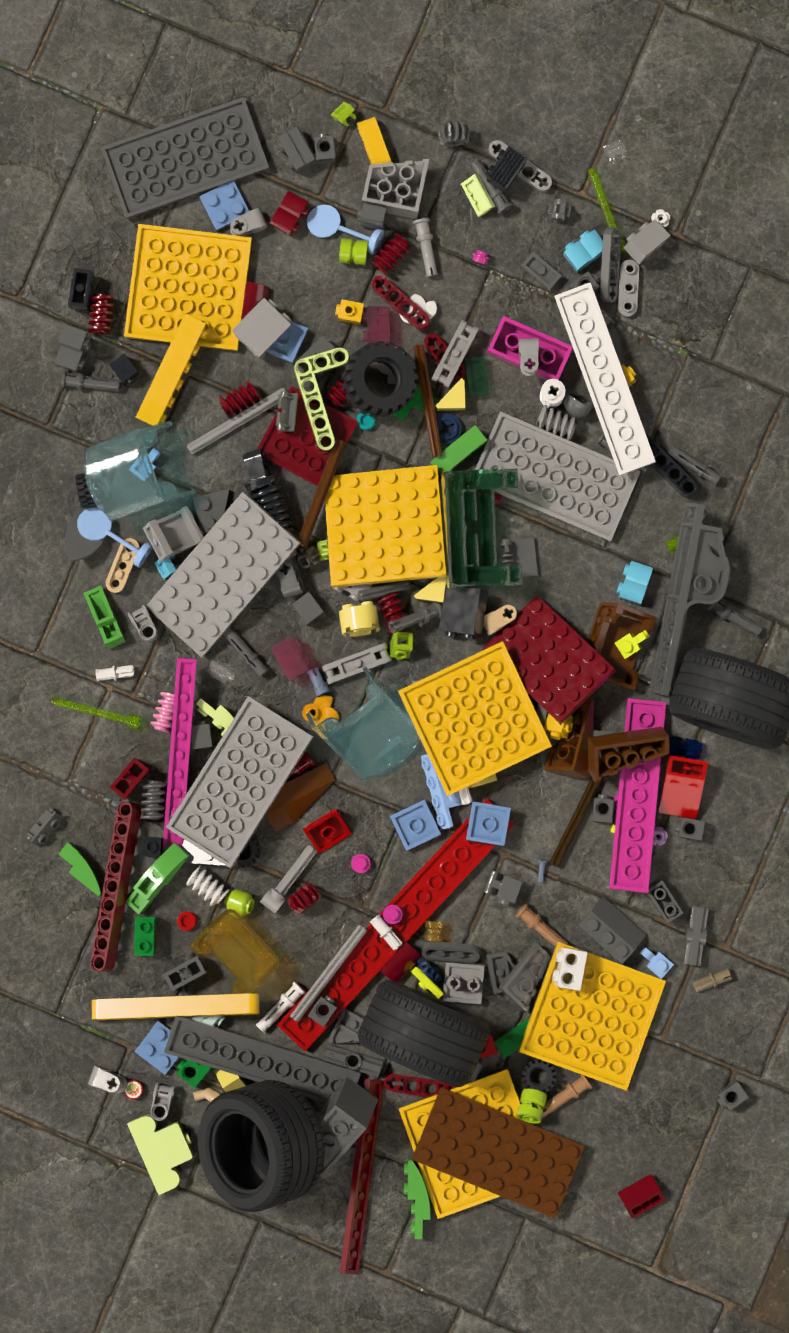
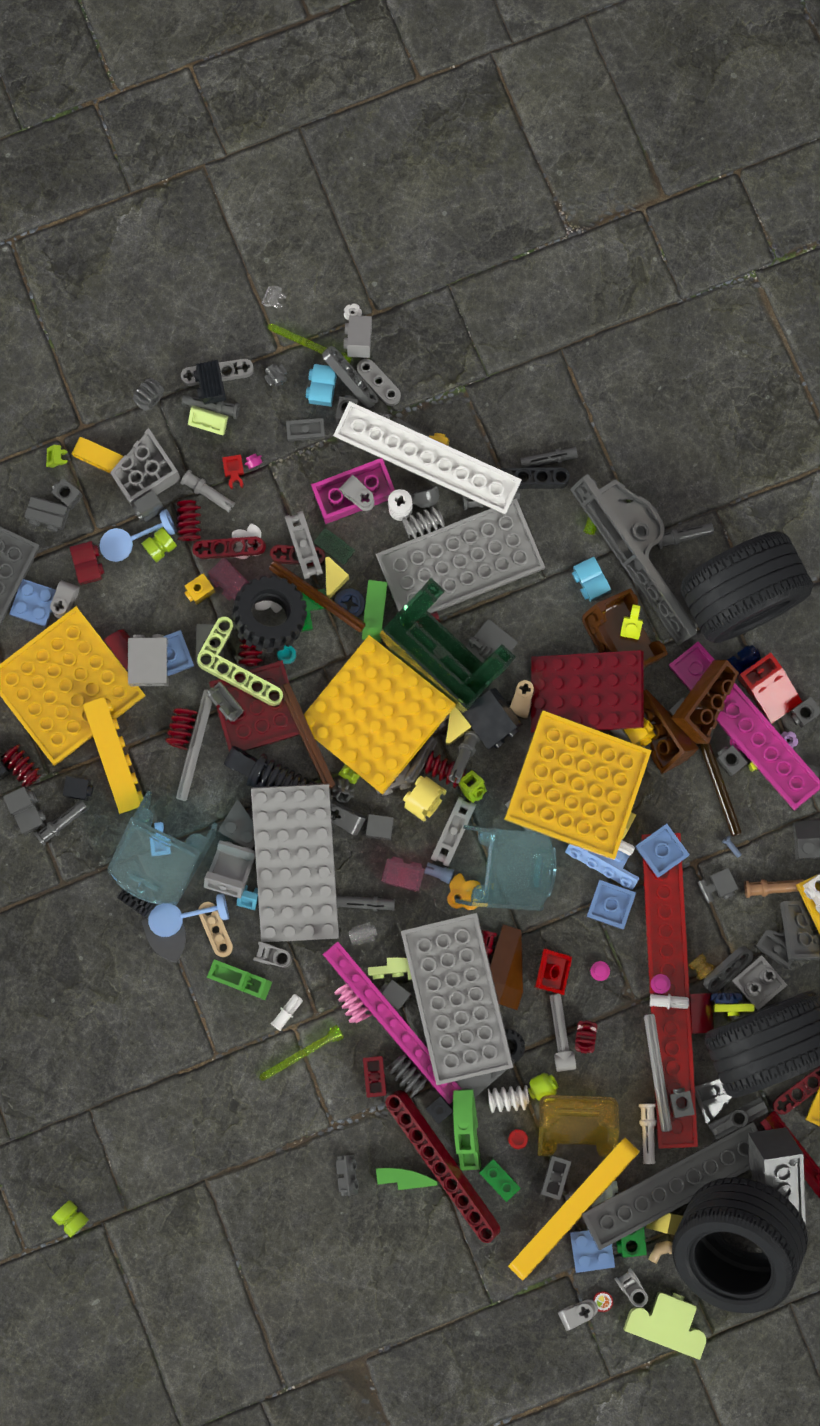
camera: 45 degrees left, 5 degrees down
(461, 249) = (233, 468): none -> red plate

